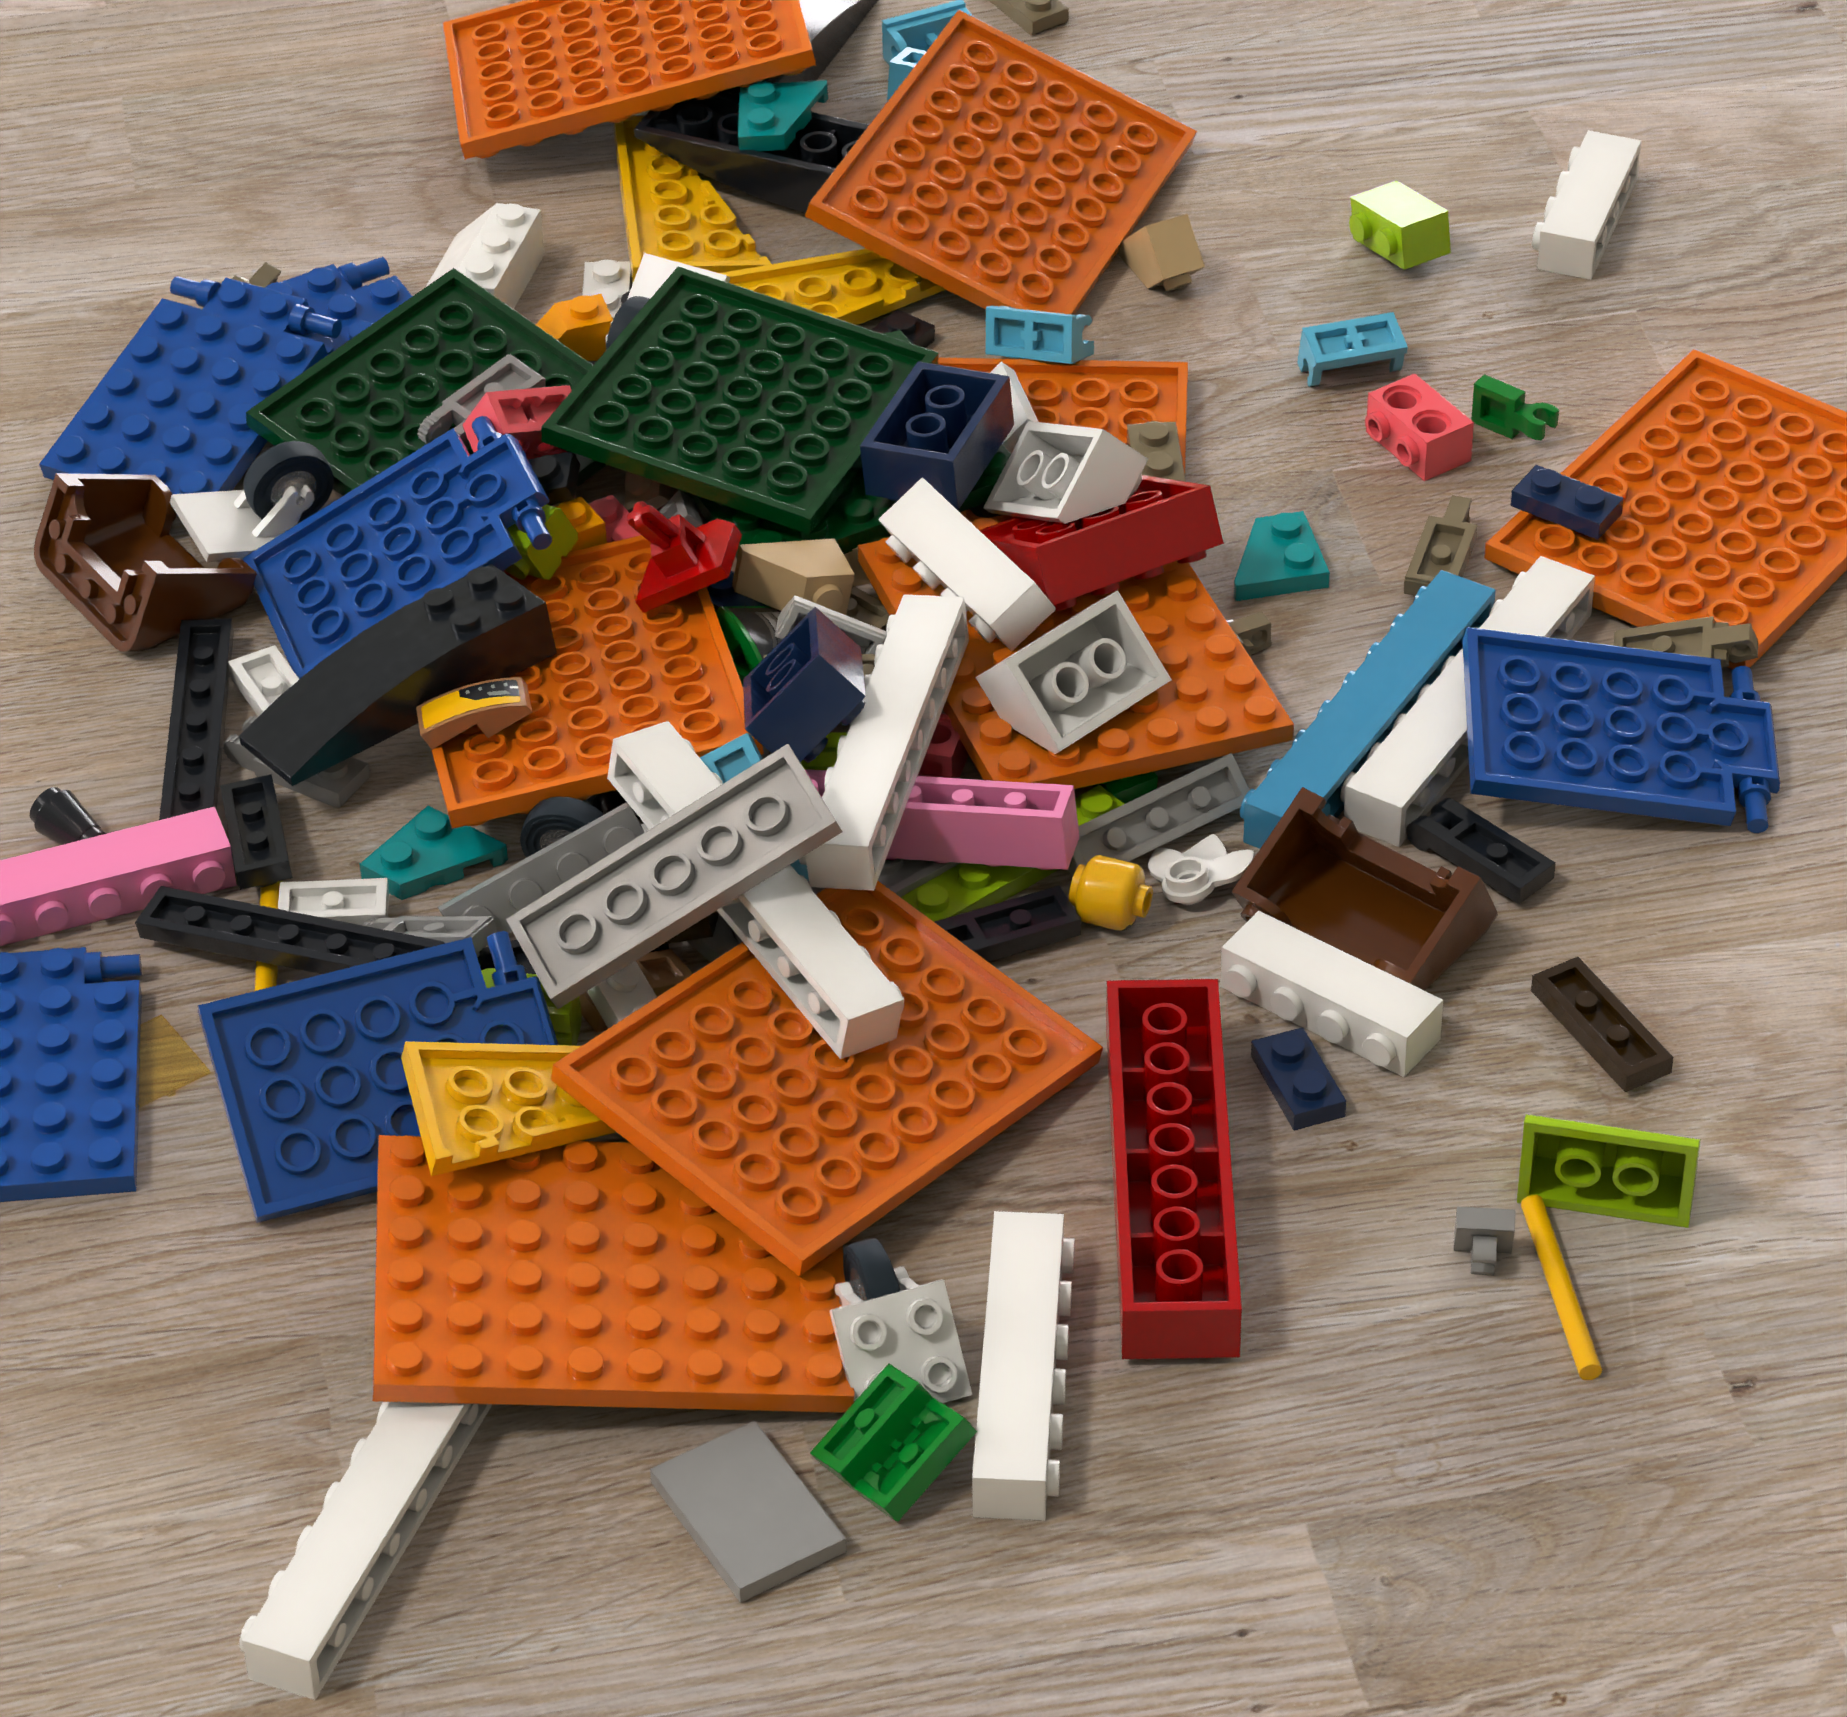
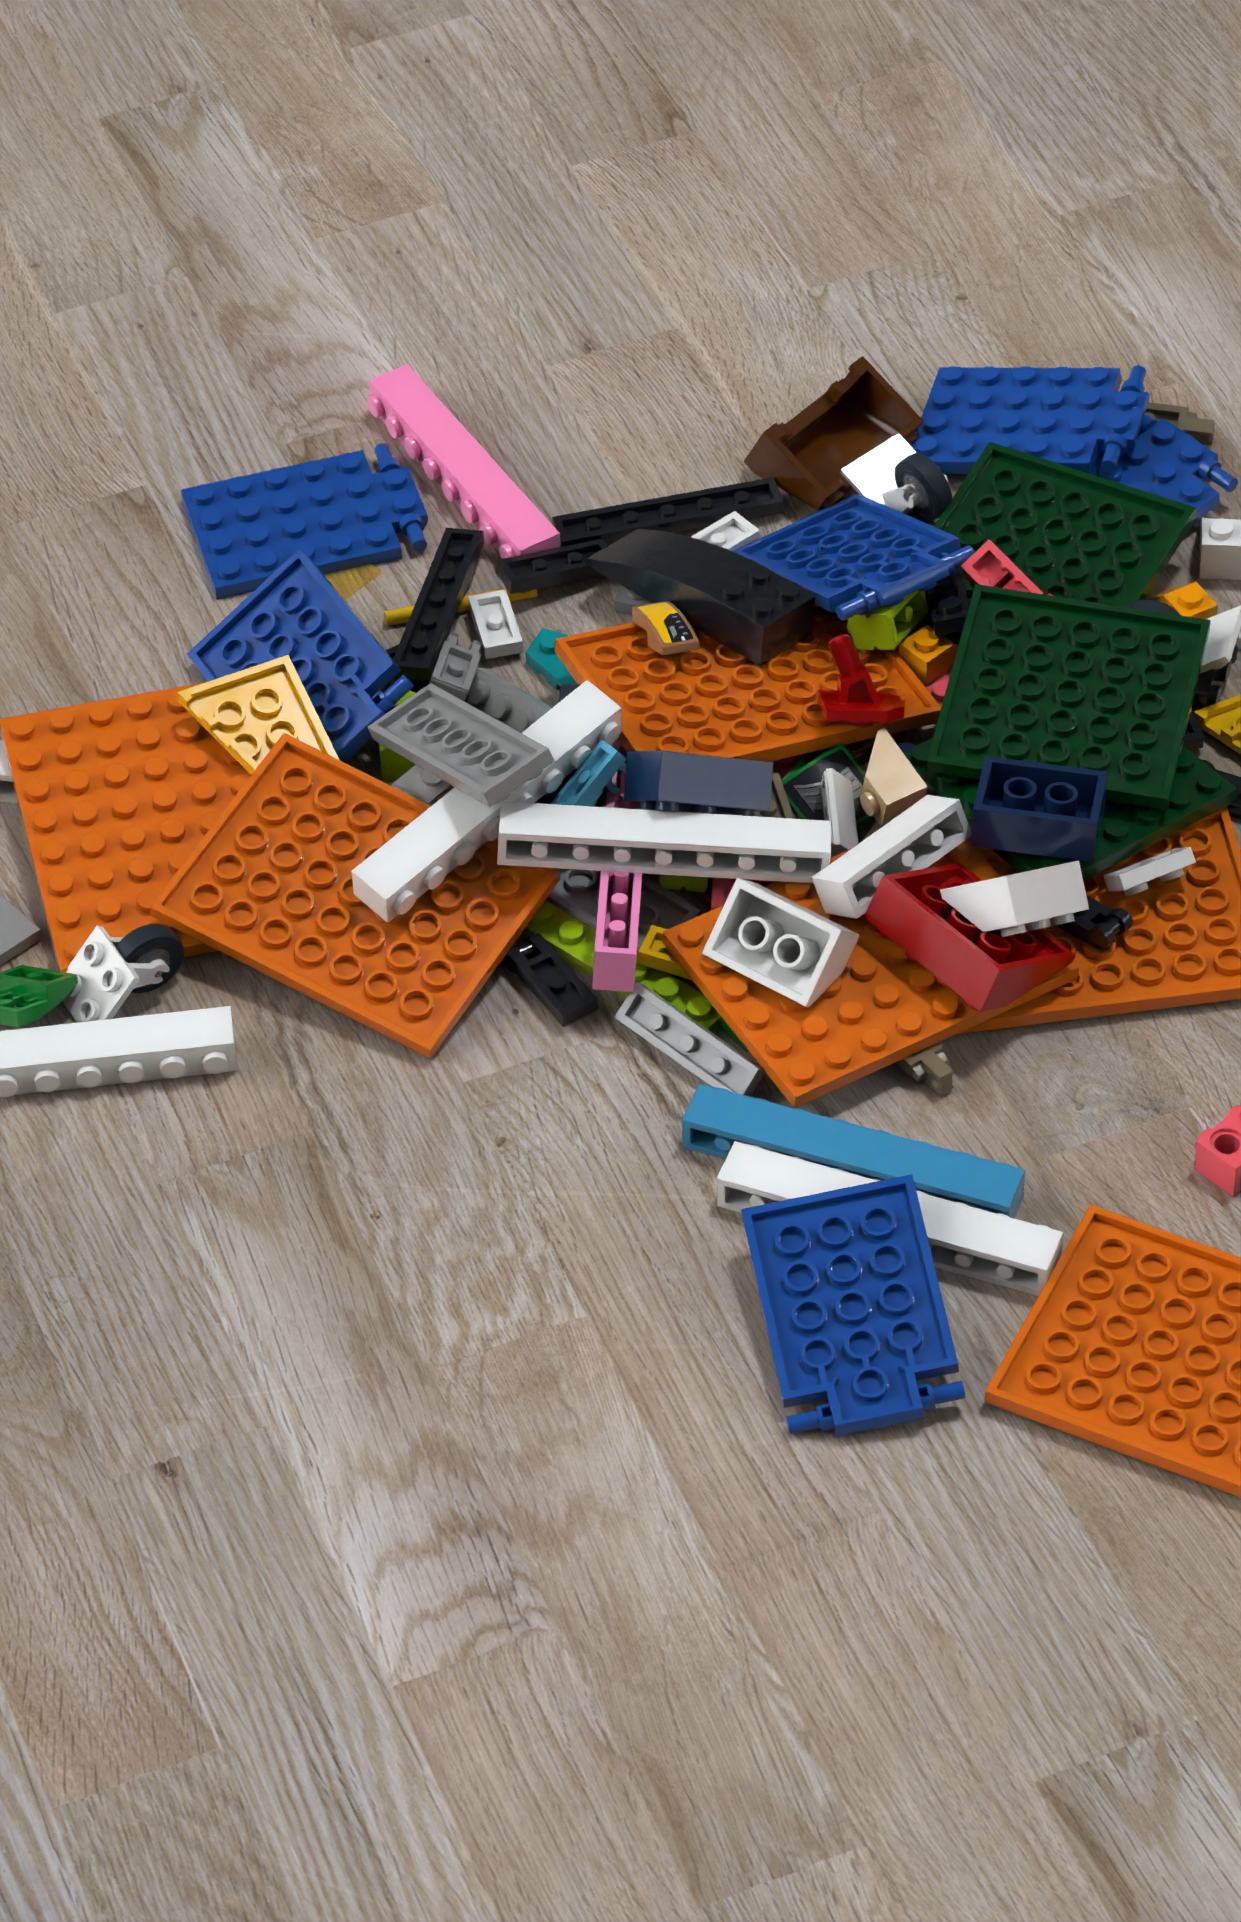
camera: 80 degrees right, 5 degrees up
(62, 817) = (550, 475): black cone -> none
(504, 375) = (1047, 564): light grey hinge -> none
(1110, 892) = (594, 1027): yellow head -> none
(1161, 446) = (1116, 979): dark tan hinge -> none
(1172, 1171) = (303, 1098): red brick -> none
(1196, 872) = (648, 1081): white plate -> none
(1280, 559) = (1051, 1084): teal wing -> none
(1298, 1078) = (432, 1172): dark blue plate -> none
(1331, 993) = (514, 1172): white brick -> none
(1364, 895) = (630, 1182): reddish brown windscreen -> none
(1442, 546) = (1082, 1182): dark tan hinge -> none
(1482, 849) = (704, 1250): black plate -> none
(1484, 1234) = (272, 1290): light grey tile -> none
(1561, 1288) = (242, 1348): yellow bar -> none
(1567, 501) = (1153, 1247): dark blue plate -> none
(1602, 1024) = (520, 1341): dark brown plate -> none
(1608, 1170) = (353, 1349): lime slope -> none
(1694, 637) = (980, 1343): dark tan hinge -> none

